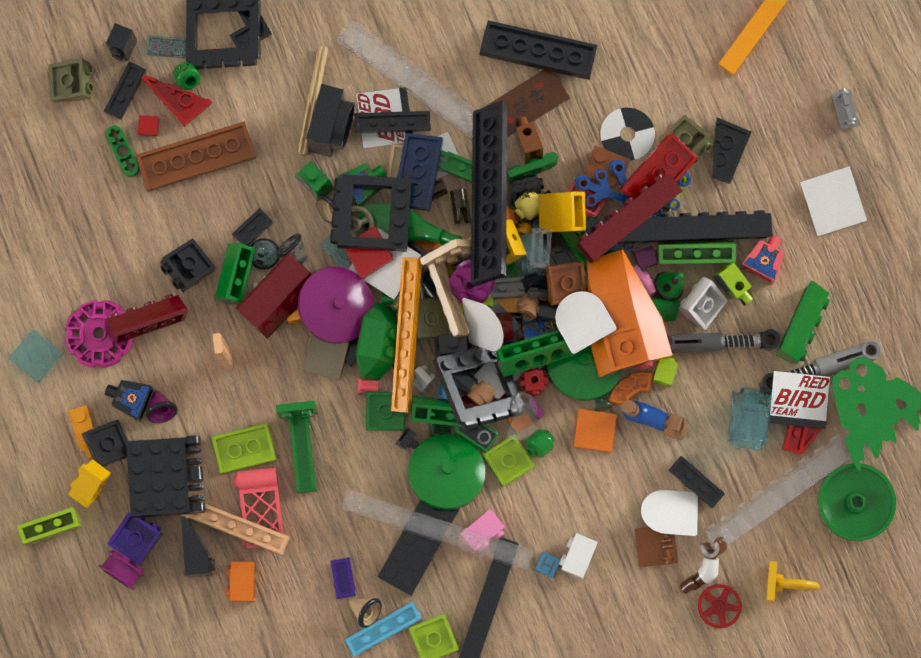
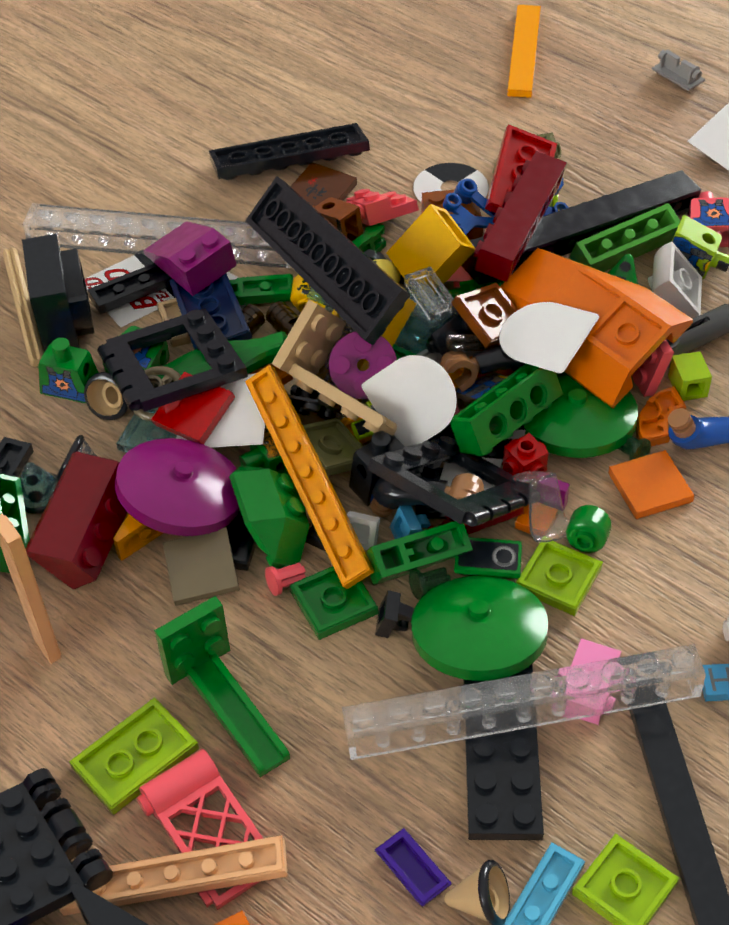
camera: 25 degrees left, 30 degrees down
(423, 125) = (193, 255): none -> magenta slope
(565, 138) = (380, 208): none -> coral plate
(728, 149) = (581, 150): black wing -> none

